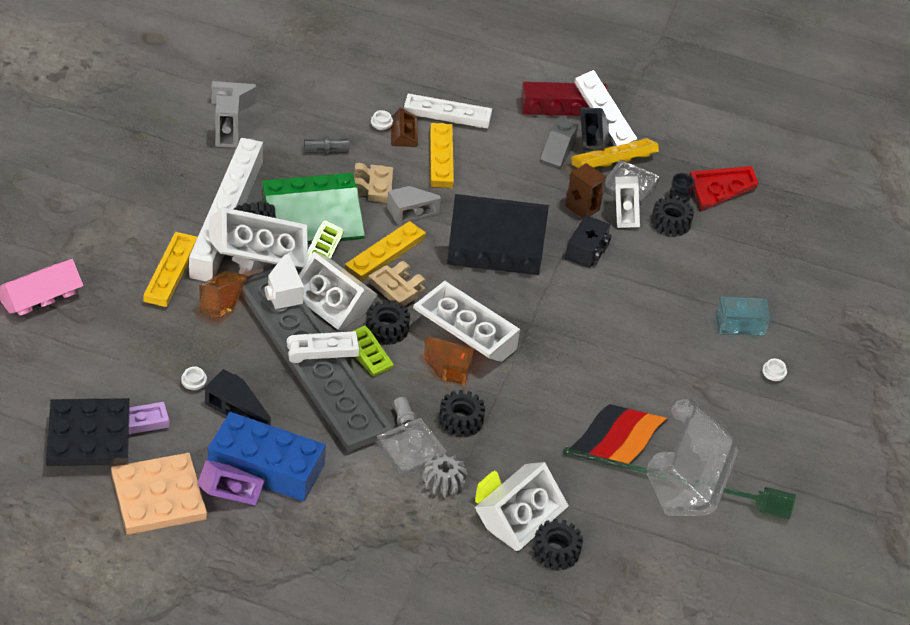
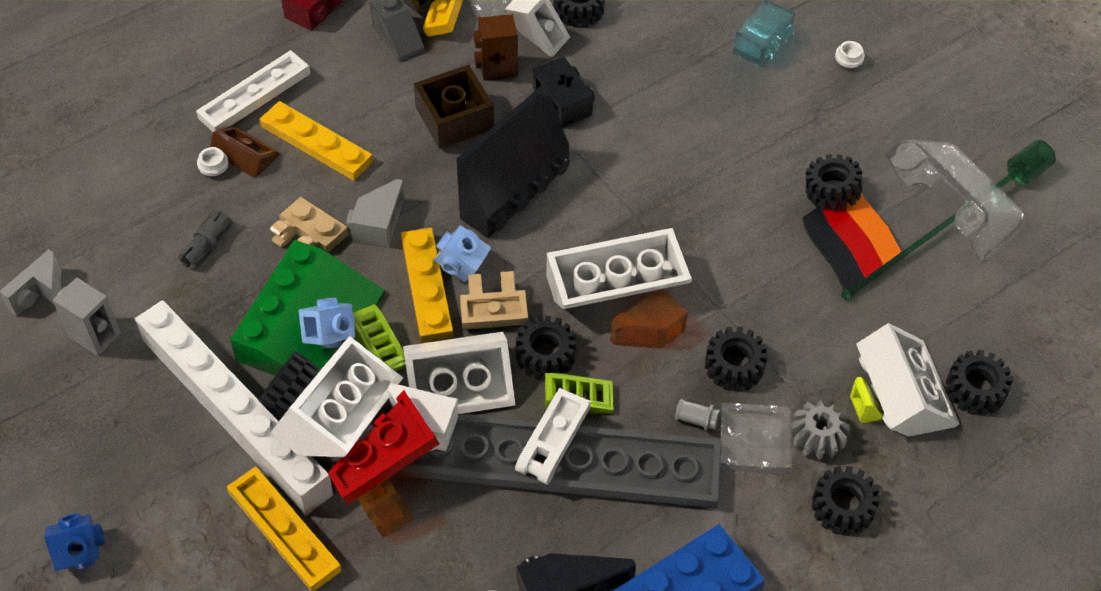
camera: 50 degrees left, 10 degrees up
(92, 190) = (74, 542): none -> blue brick
(251, 273) = (388, 448): none -> red wing
(305, 204) = (327, 323): none -> light blue brick
(401, 521) = (853, 484): none -> black tyre
(416, 250) = (461, 253): none -> light blue brick
(523, 187) = (454, 106): none -> dark brown brick
(649, 402) = (834, 194): none -> black tyre

